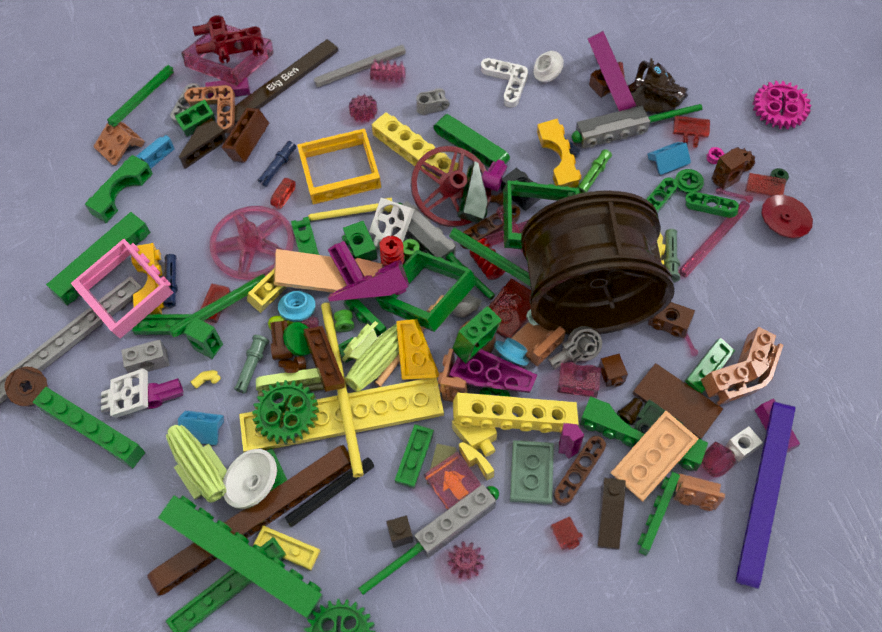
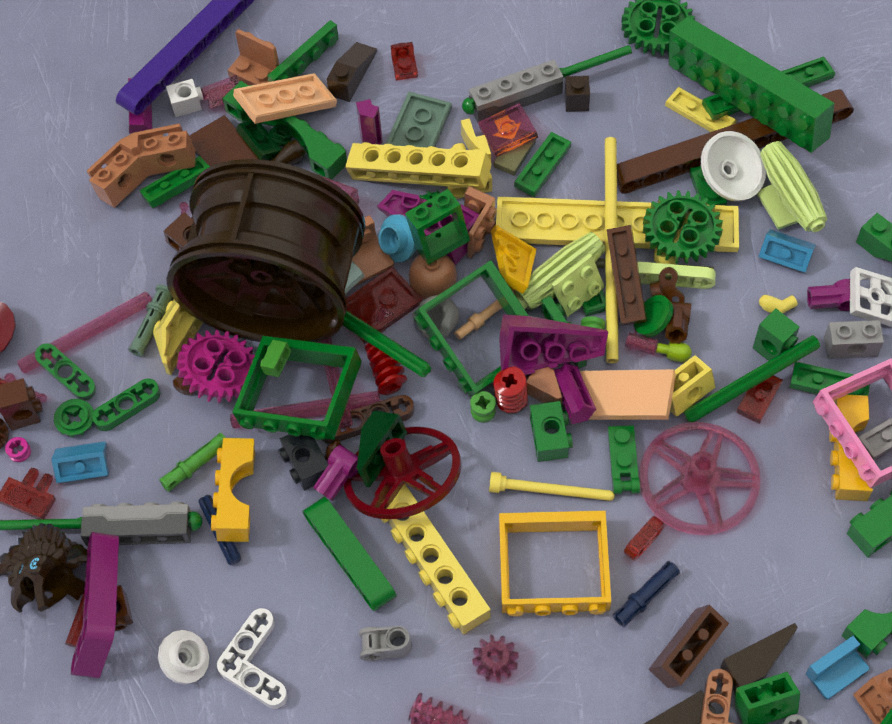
camera: 165 degrees left, 0 degrees up
(170, 275) = (819, 434): dark blue pin -> none
(253, 355) = (713, 315): sand green pin -> none
(296, 306) = (650, 350): medium azure piece -> none
(326, 494) = (598, 168): black axle -> none
(379, 216) = (510, 430): white piece -> none
(434, 242) = (454, 414): piece -> none
(466, 552) = (515, 56): clear pink gear -> none
(582, 472) = (378, 100): reddish brown beam -> none

